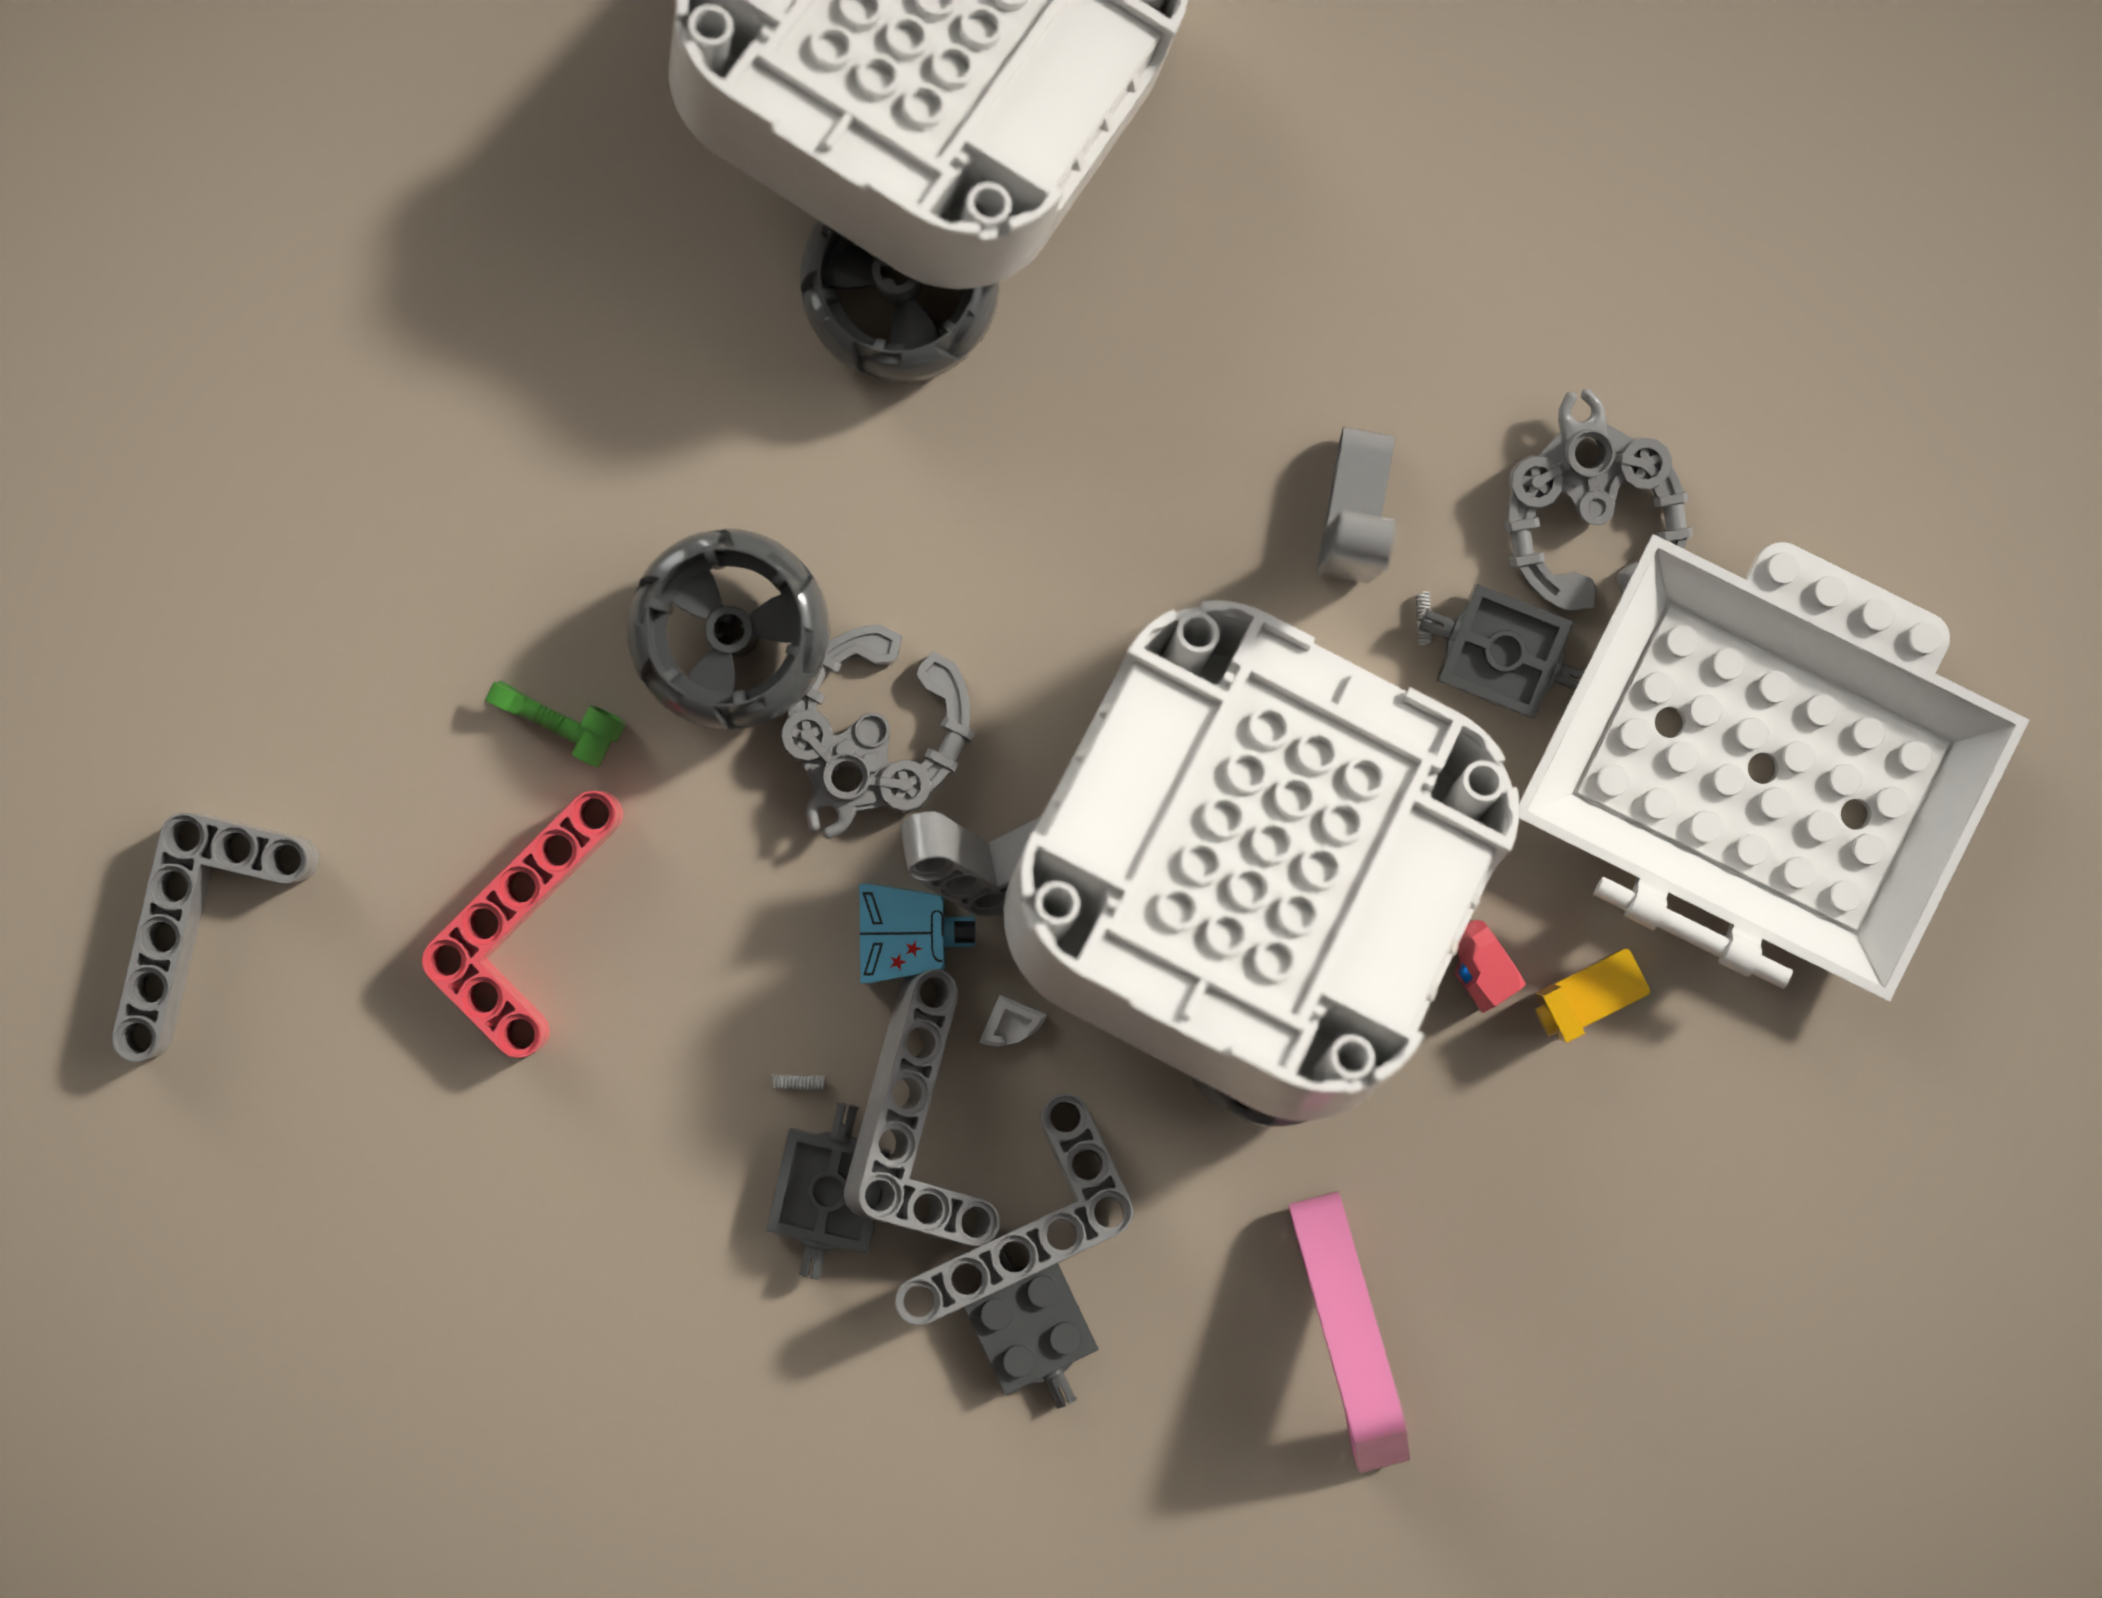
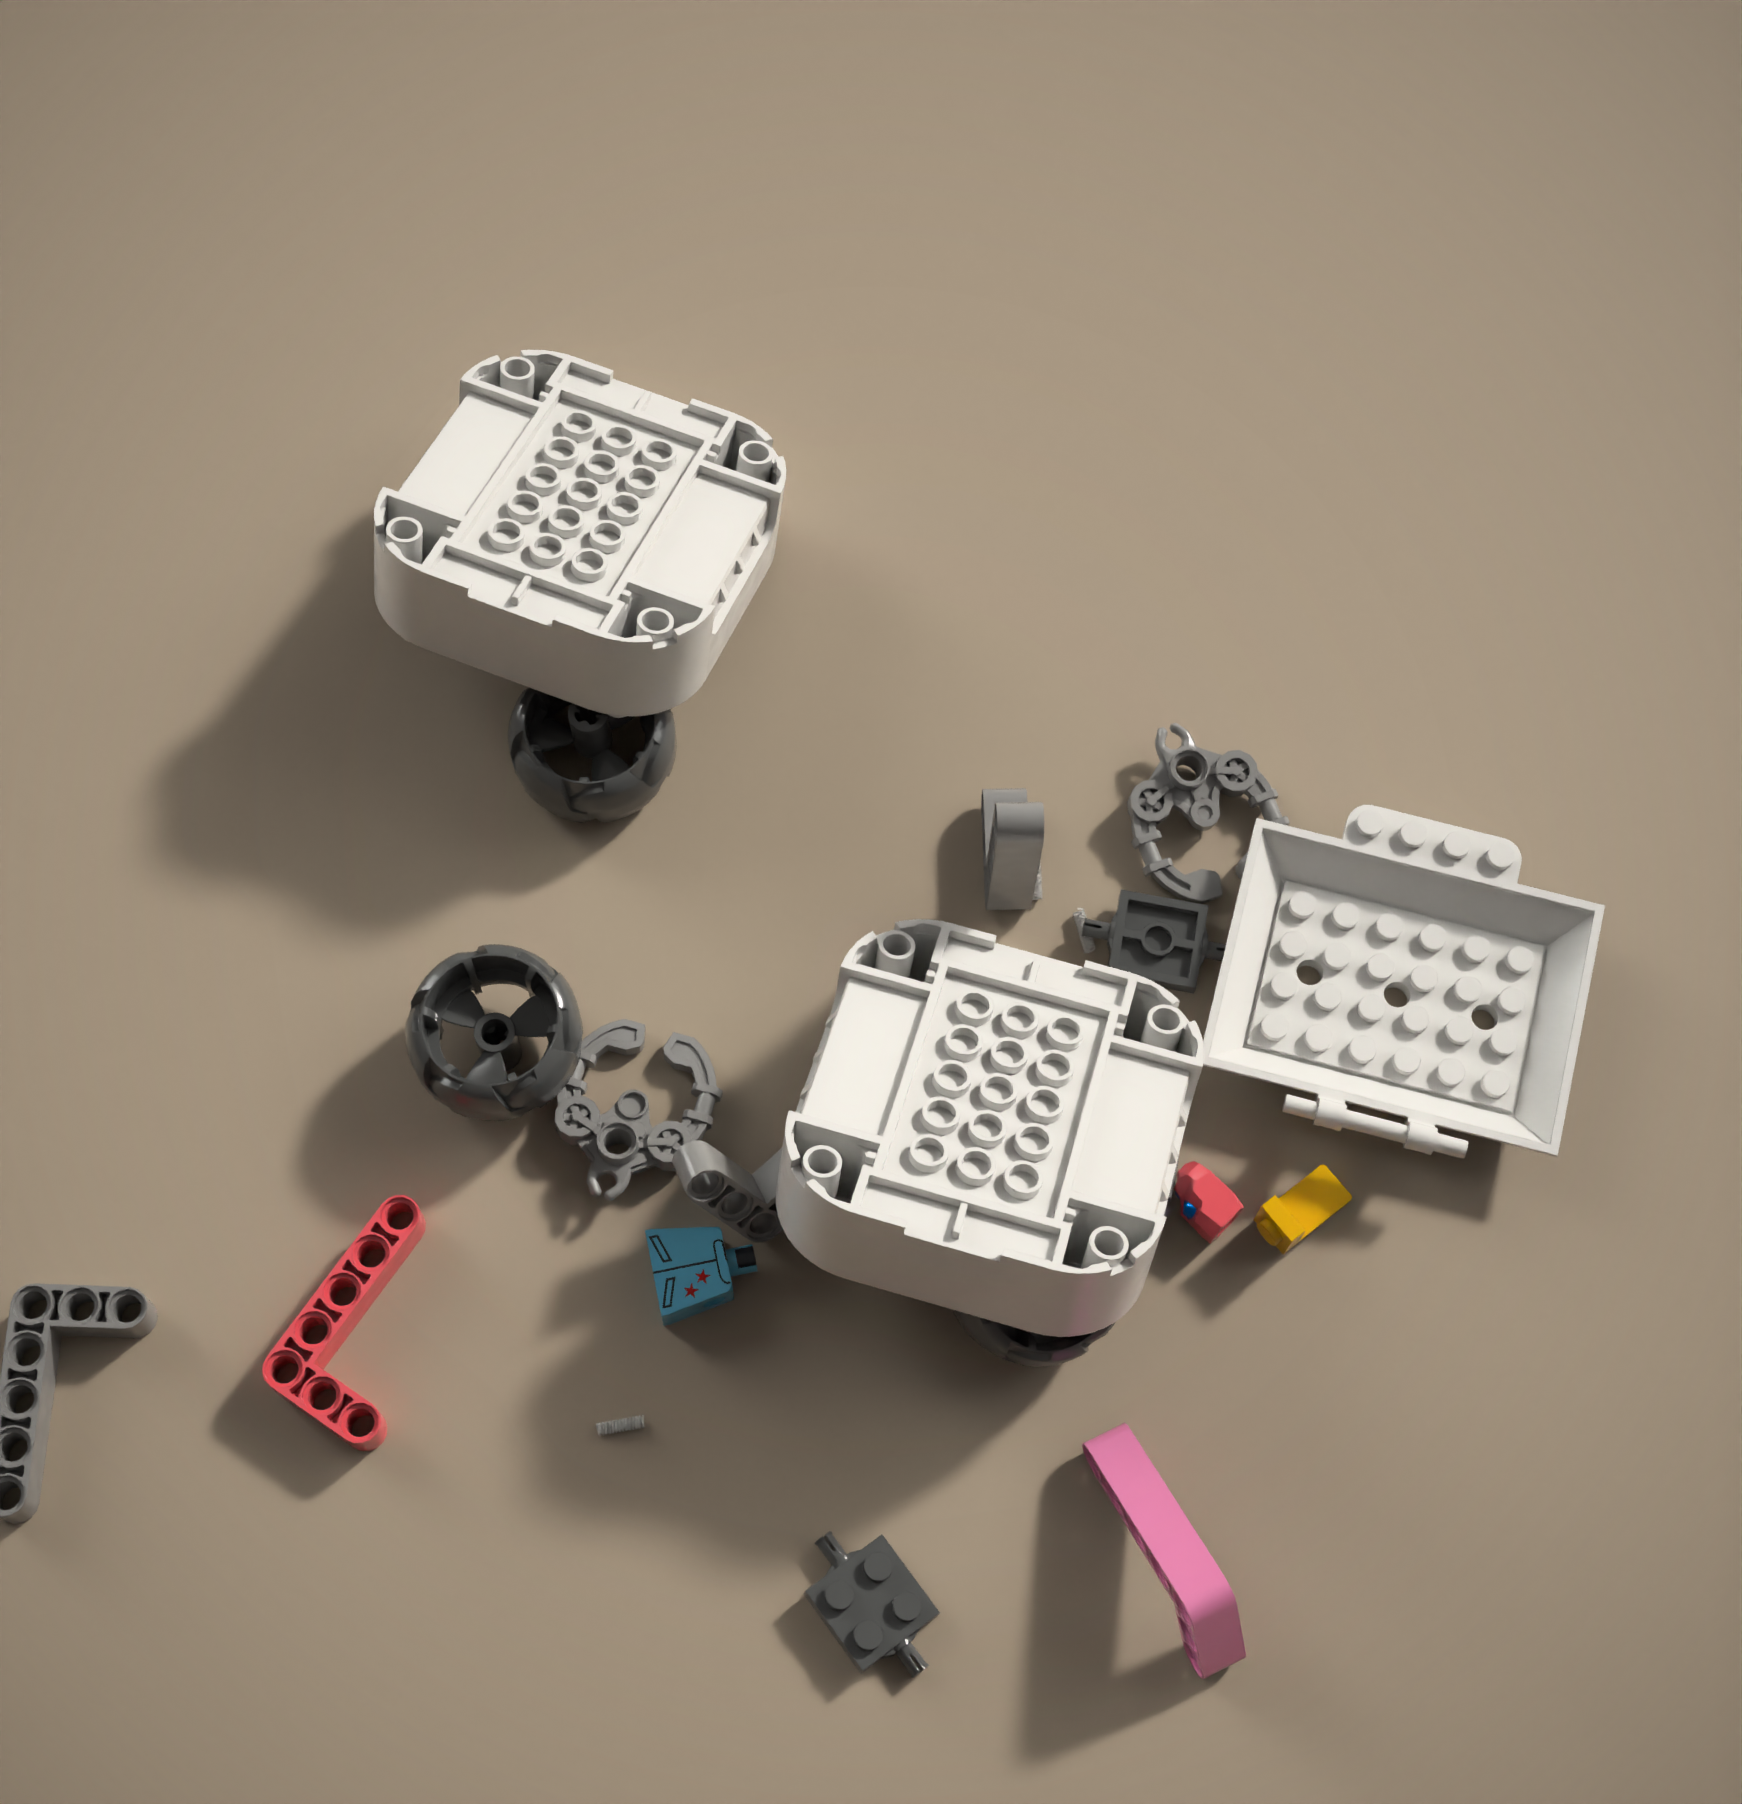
camera: 15 degrees left, 20 degrees down
(591, 736) = (387, 1157): bright green brick -> none
(811, 1193) = (665, 1515): dark grey plate -> none
(907, 1123) = (723, 1434): light grey beam -> none
(1011, 1023) = (802, 1335): white tile -> none
(1034, 1235) = (857, 1510): light grey beam -> none

